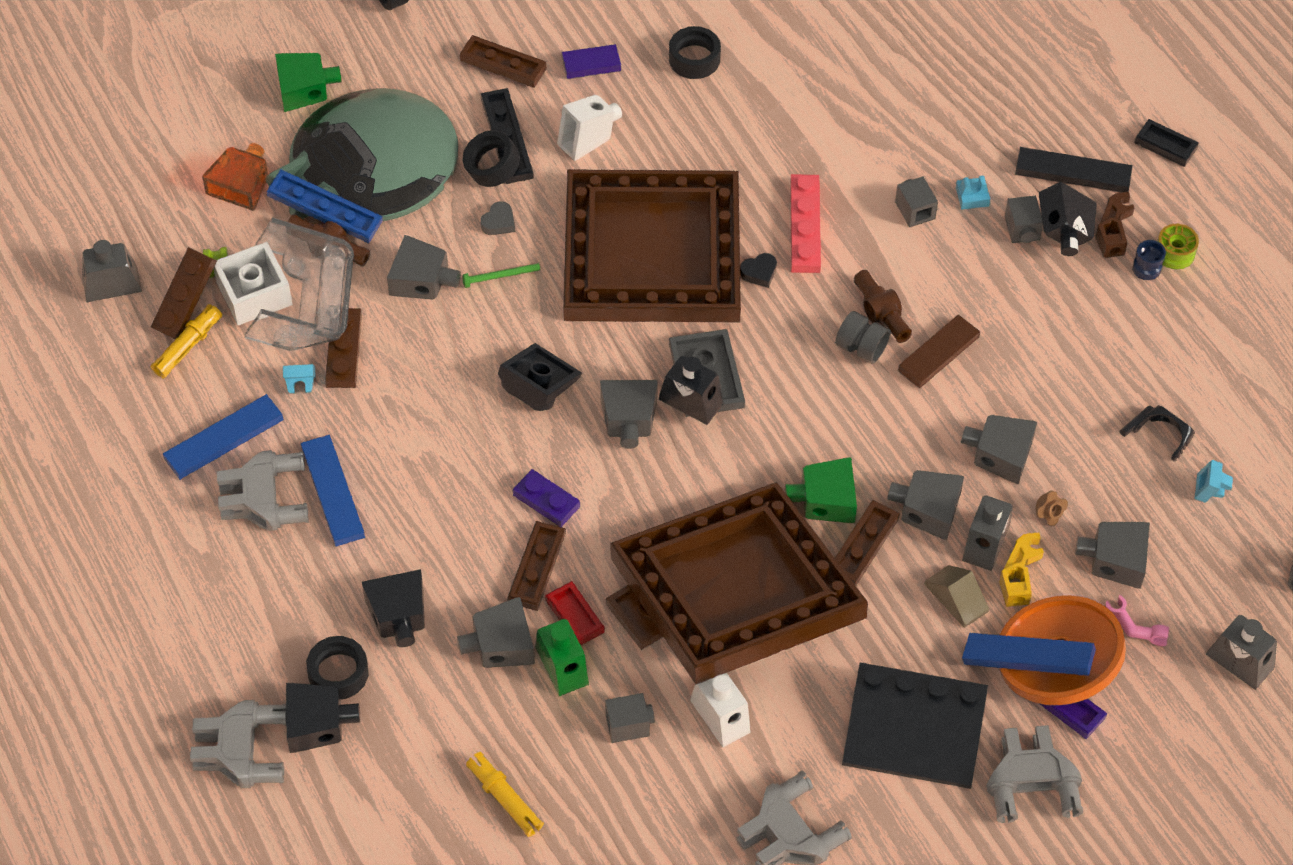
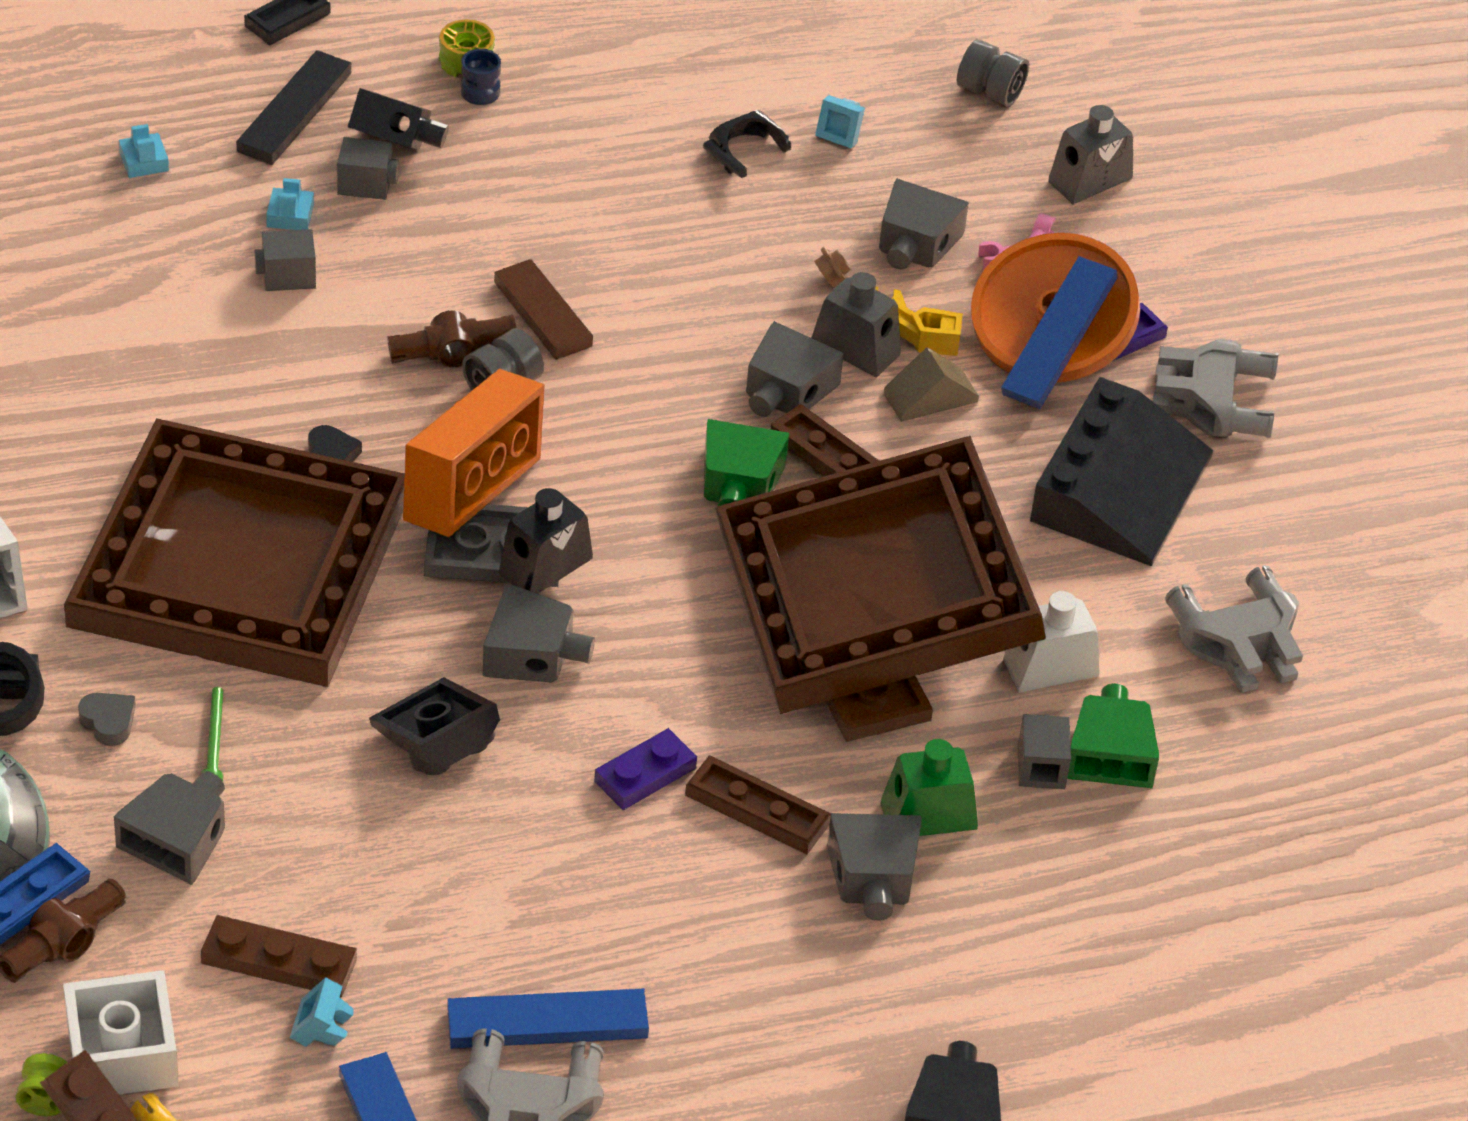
camera: 80 degrees left, 10 degrees down
(326, 273) = (204, 950): clear windscreen -> none
(336, 646) = (878, 1034): black tyre -> none
(396, 605) = (792, 970): black torso -> none
(495, 783) = (1112, 917): yellow pin -> none
(571, 605) = (847, 778): red tile -> none
(653, 758) = (1114, 740): none -> green torso
(756, 330) = (473, 452): none -> orange brick
(805, 224) = (267, 384): coral plate -> none
(988, 104) = (143, 152): none -> medium azure tile
(1002, 445) = (727, 283): dark grey torso -> none
(1111, 222) = (425, 94): reddish brown piece -> none

